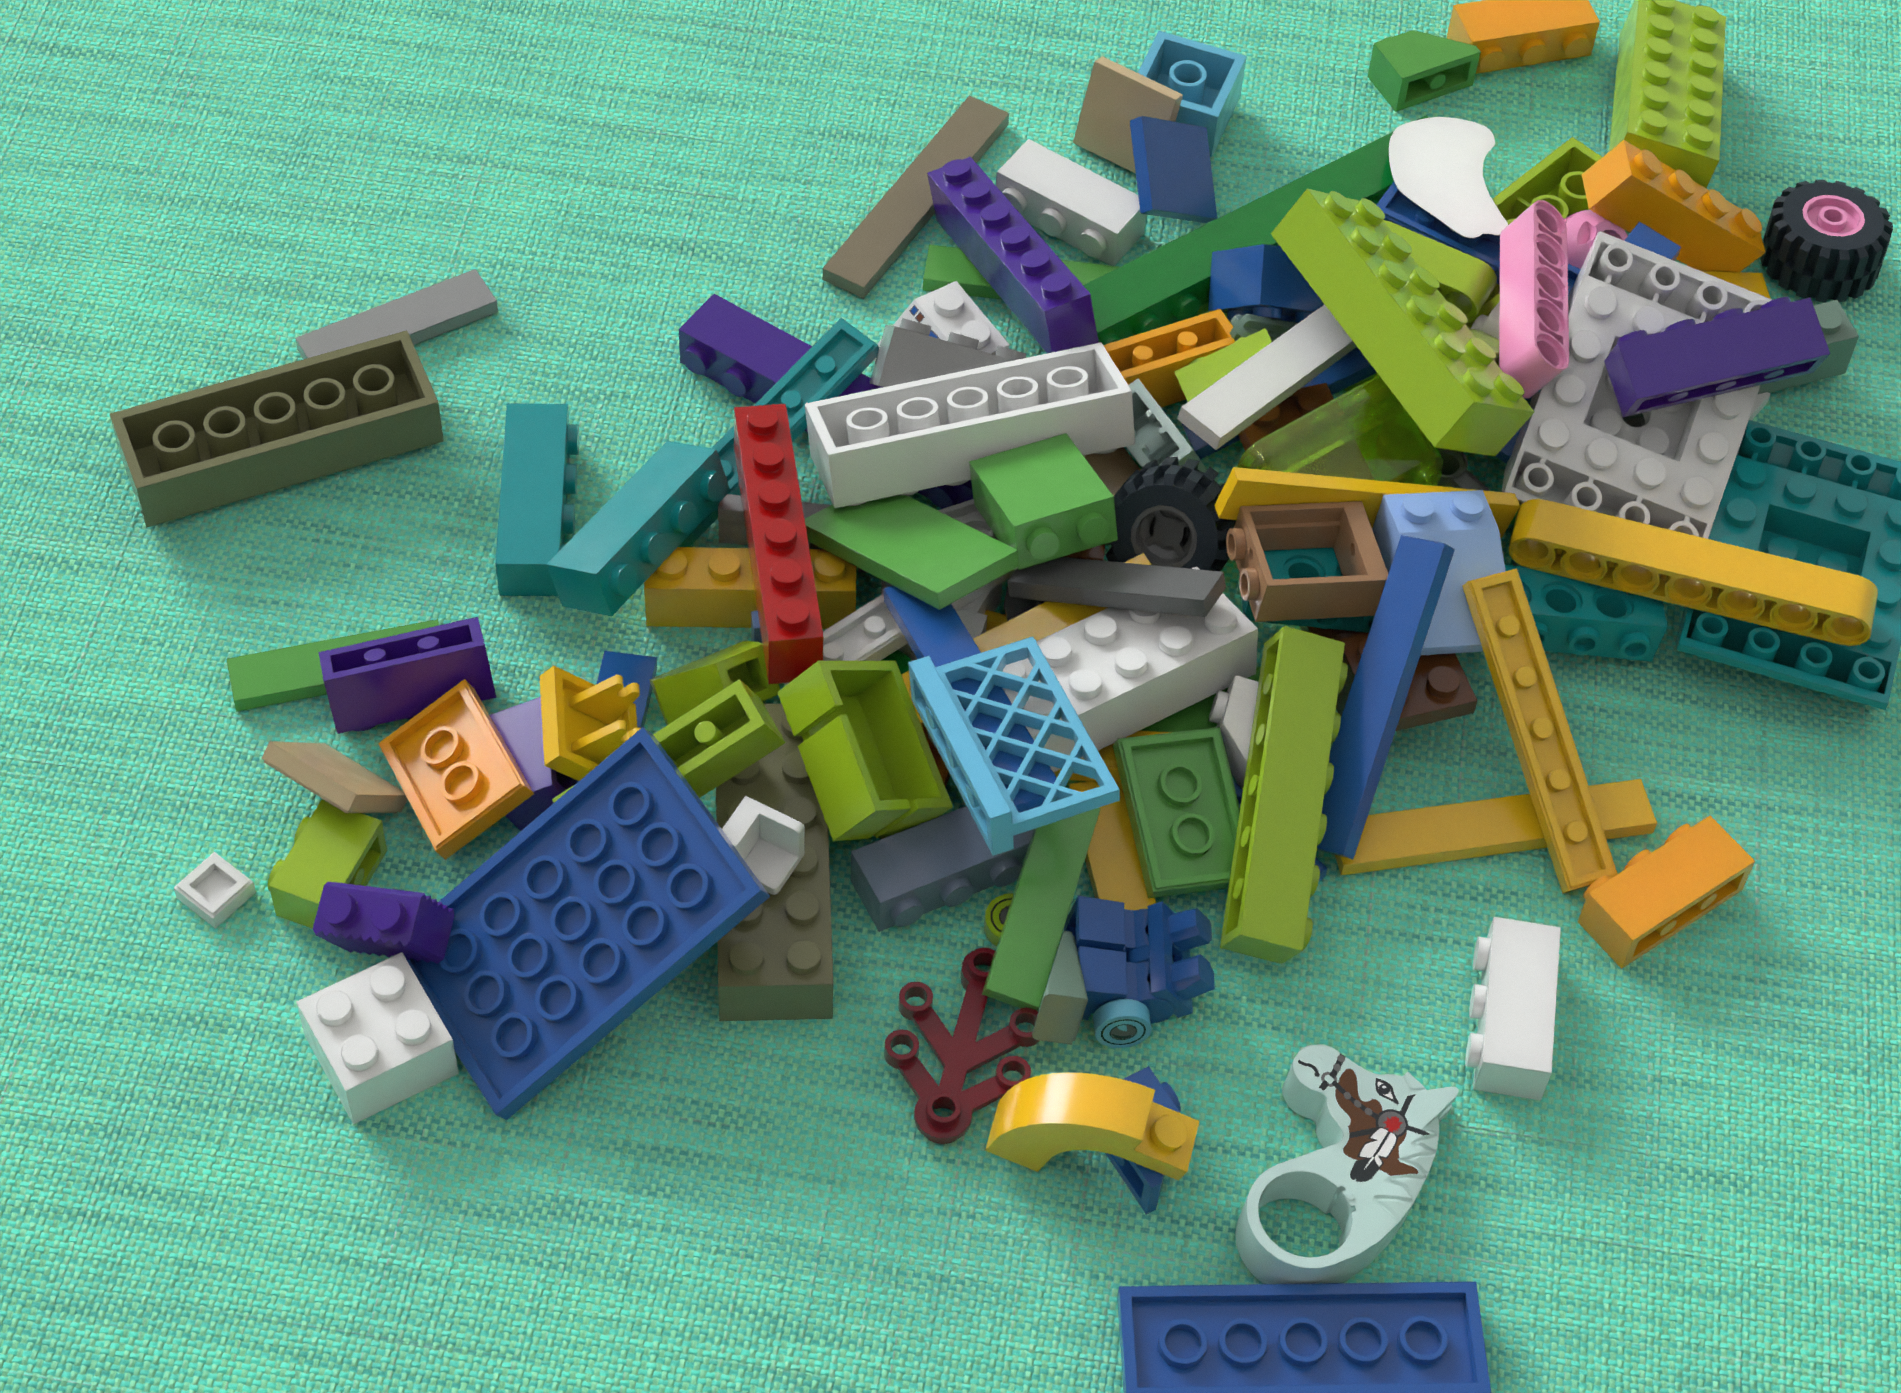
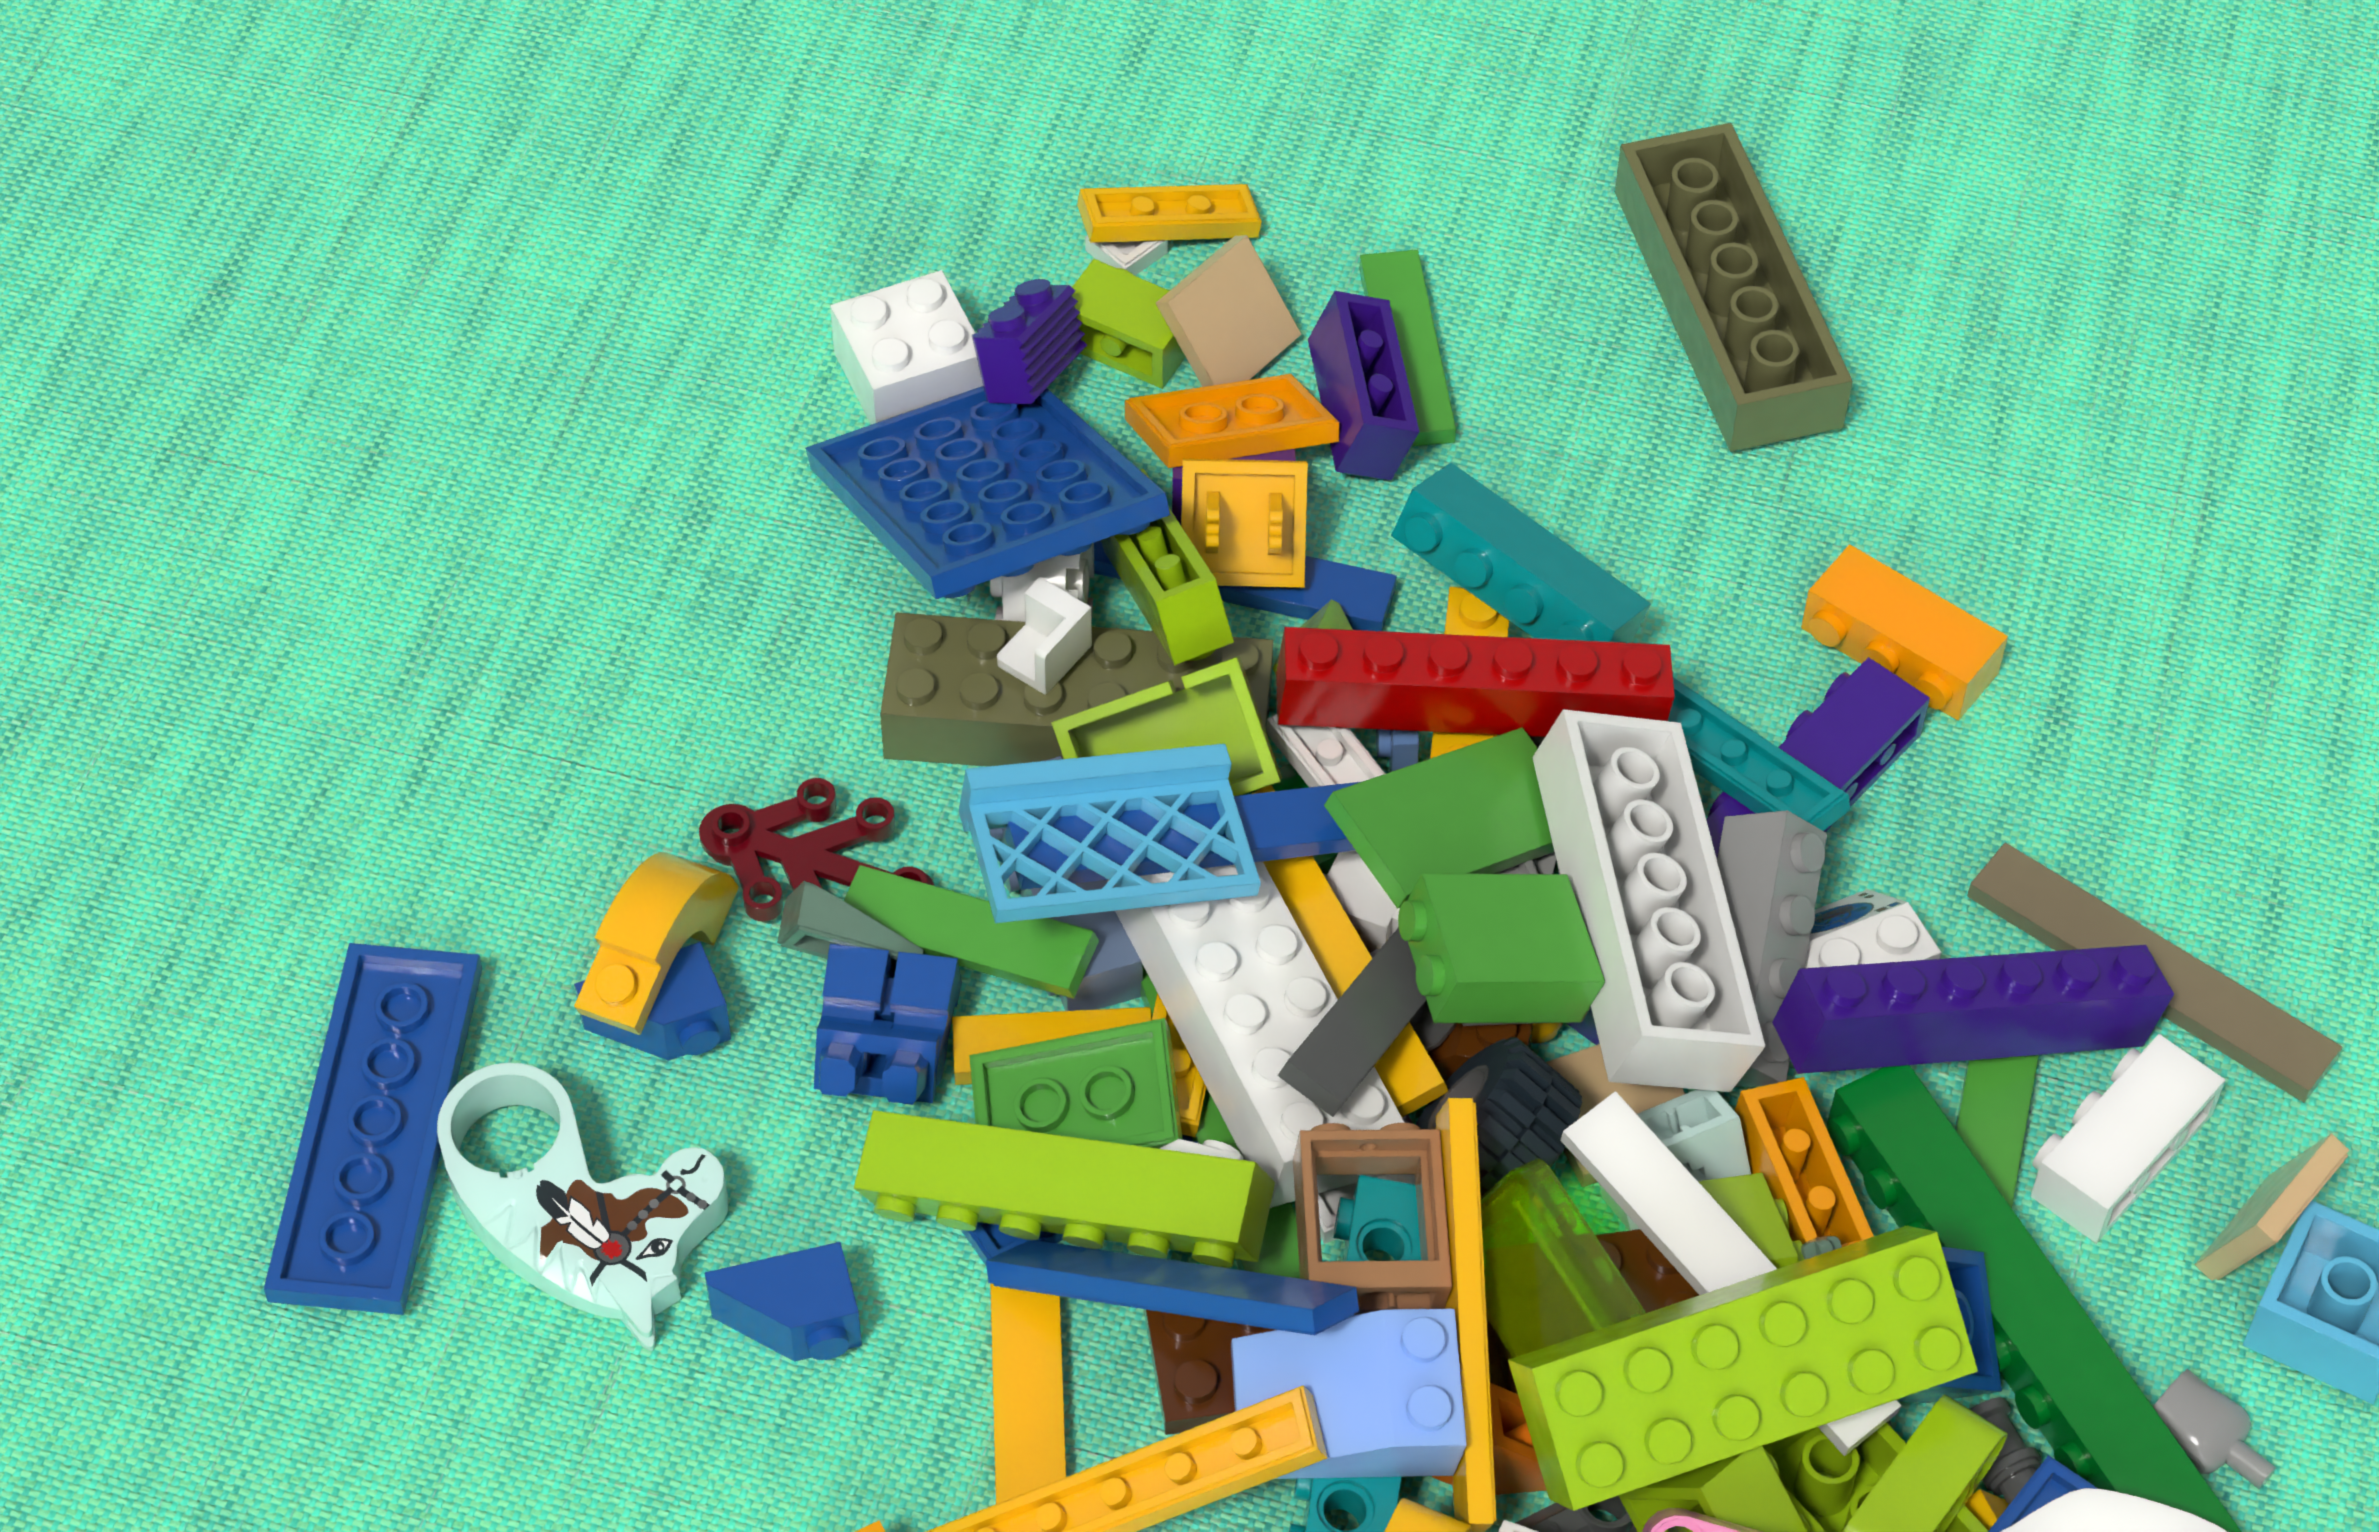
camera: 100 degrees right, 0 degrees up
(187, 849) = (1168, 213): none -> yellow tile
(420, 313) = (1916, 416): light grey tile -> none
(534, 496) = (1637, 517): teal brick -> none
(633, 324) = (1904, 628): none -> light orange brick
(1124, 1020) = (807, 1009): medium azure tile -> none
(1173, 169) = (2162, 1245): blue tile -> none
(1279, 169) = (2211, 1429): none -> light grey piece
(1398, 989) = (790, 1302): none -> blue slope
(1514, 1008) = (750, 1426): white brick -> none

